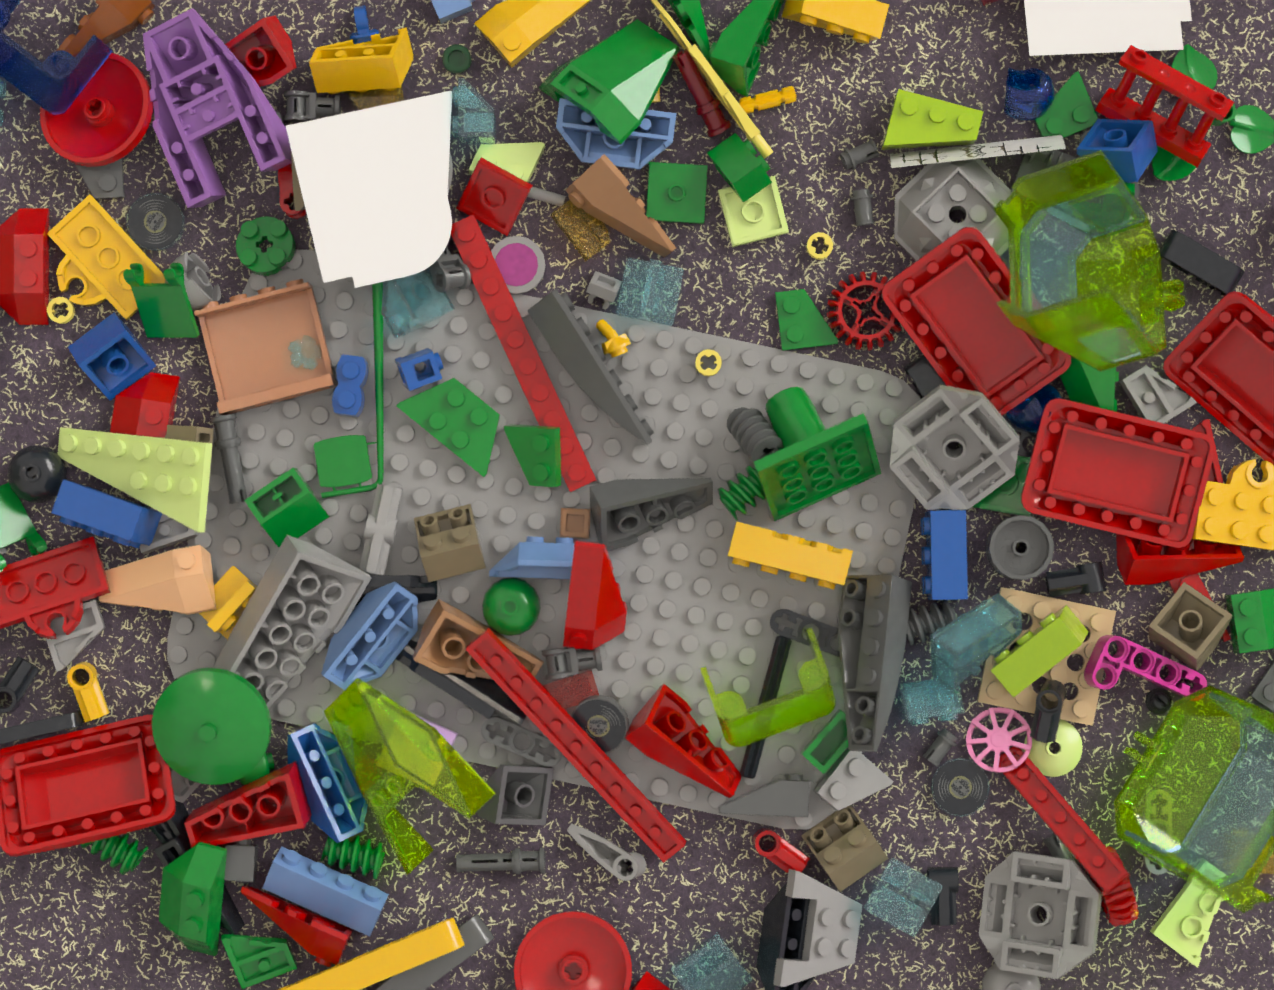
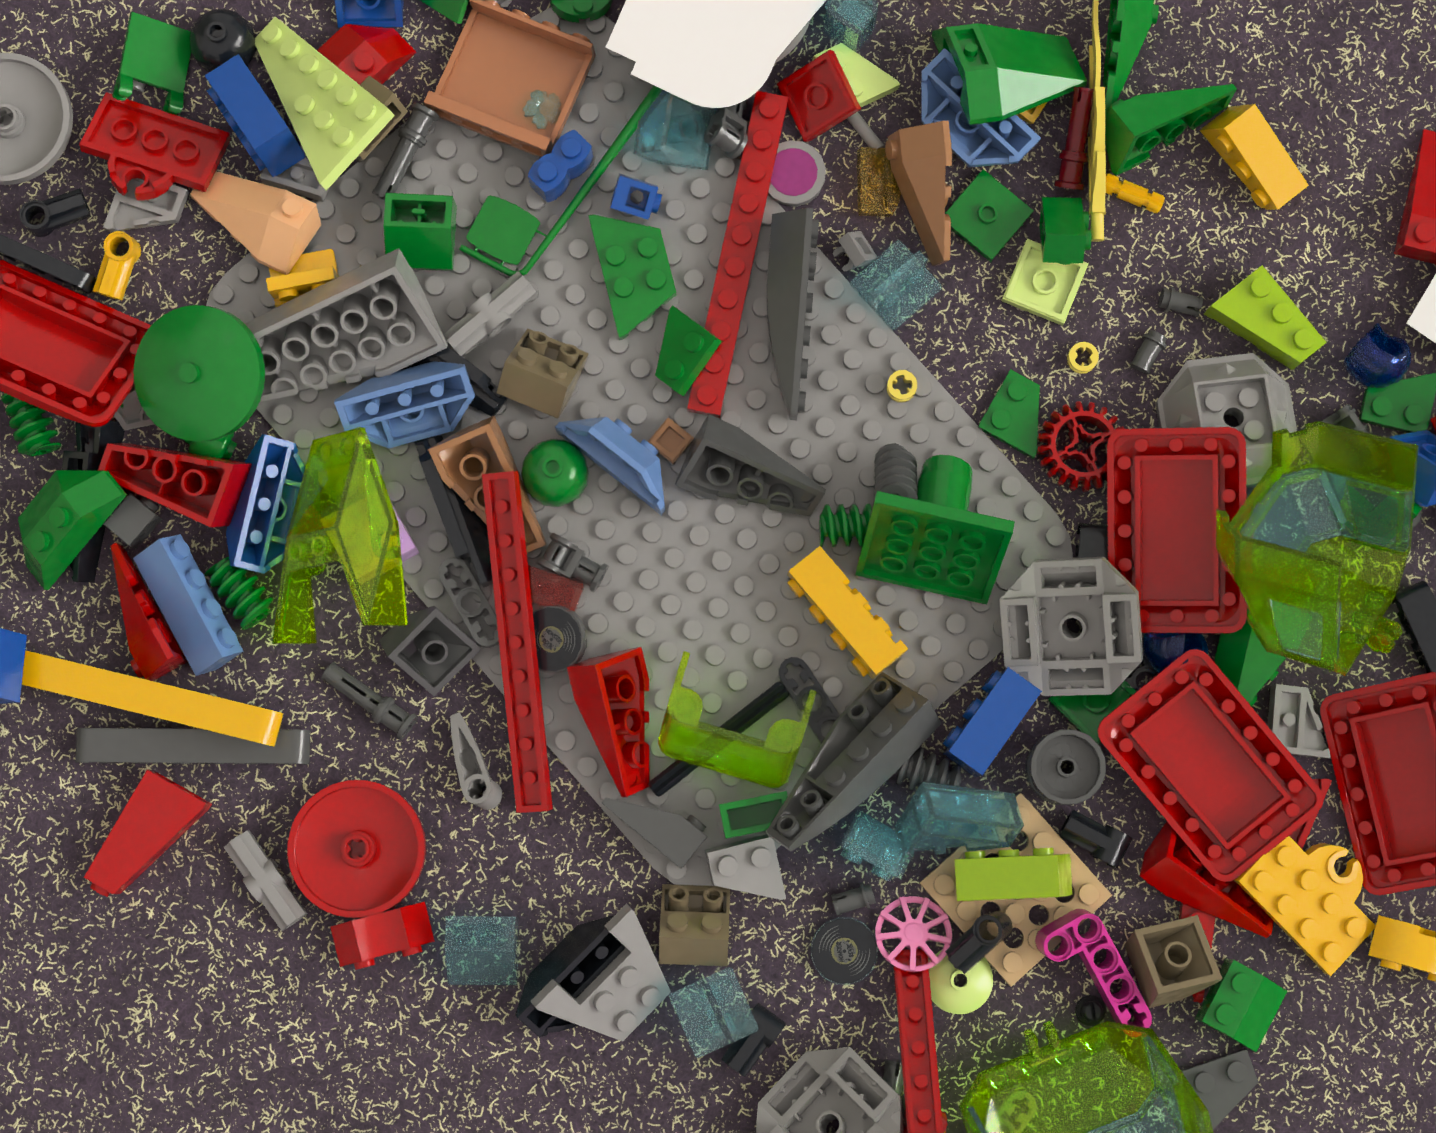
camera: 35 degrees right, 5 degrees down
(258, 958) = (81, 620): green wing -> none
(594, 599) = (631, 521): red wedge -> none
(615, 344) = (829, 306): yellow plate -> none
(782, 853) = (632, 887): red piece -> none
(977, 151) = (1294, 375): white sticker -> none

